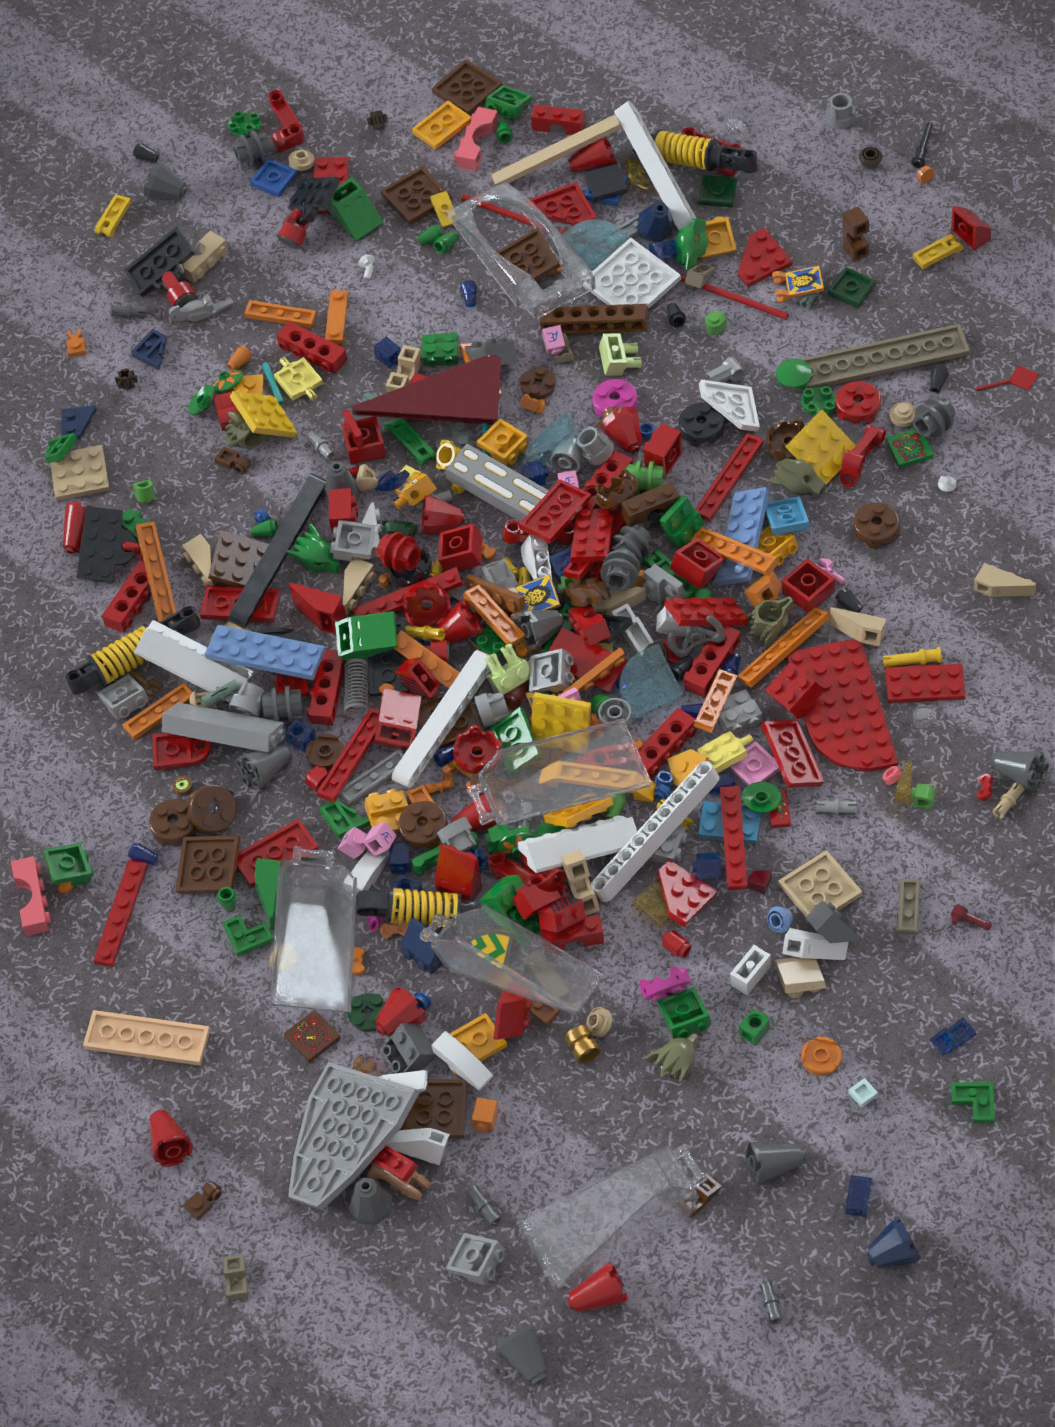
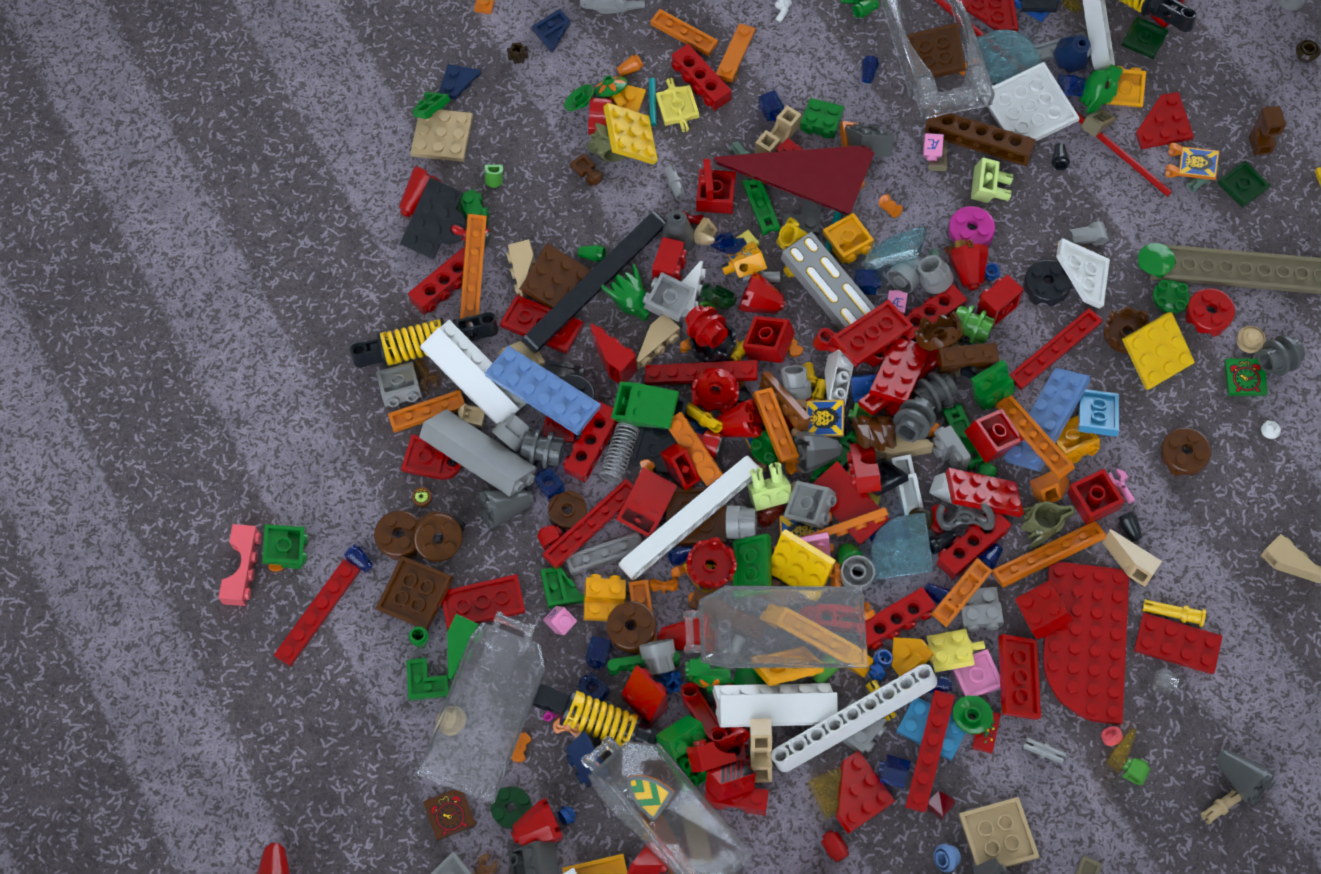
camera: 15 degrees right, 10 degrees up
(146, 1037) = (293, 757): light nougat plate -> none
(220, 693) = (488, 415): sand green pin -> none
(261, 516) = (593, 238): blue plate -> none
(369, 869) = (565, 652): white slope -> none
(379, 838) = (584, 627): bright pink brick -> none
(541, 374) = (905, 175): reddish brown plate -> none
(715, 322) = (1097, 178): bright green plate -> none
(792, 476) = (1123, 373): olive piece -> none
(854, 460) = (1187, 376): red piece -> none
(938, 377) = (1298, 311): black cone -> none
(985, 781) = (1205, 776): red piece -> none

